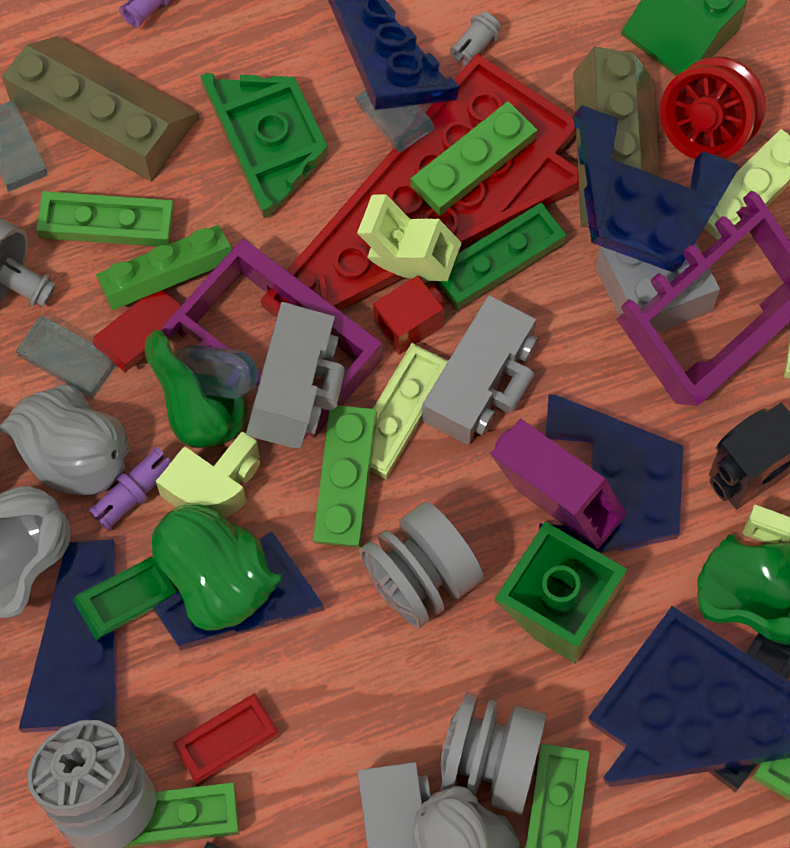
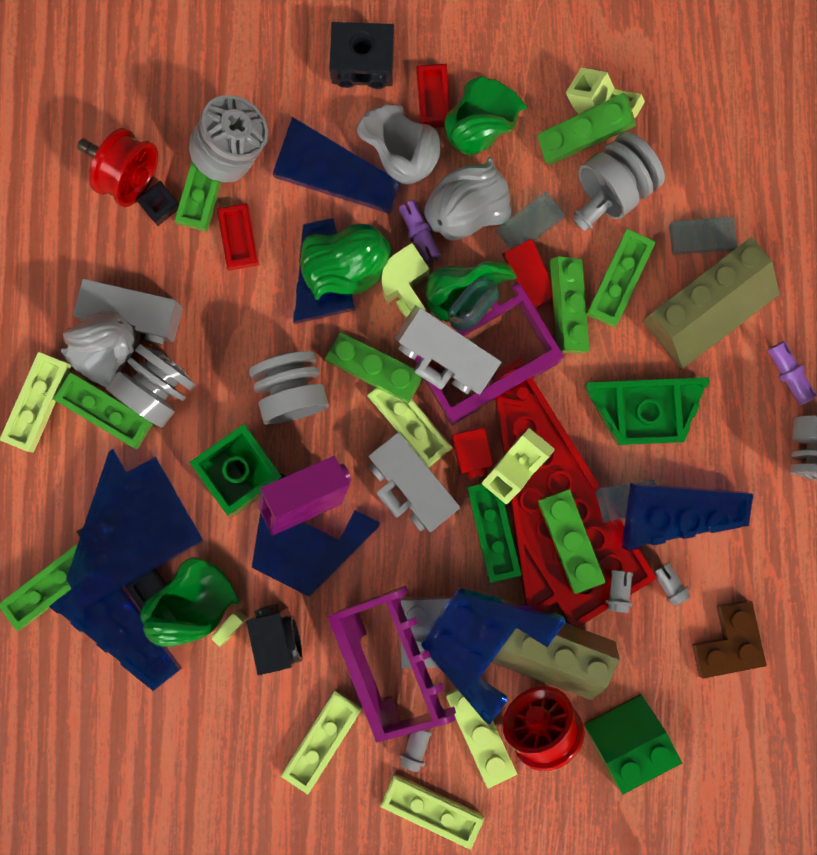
camera: 110 degrees right, 15 degrees up
(124, 597) = (345, 199): green tile -> none
(512, 82) = (620, 591): none -> light grey pin

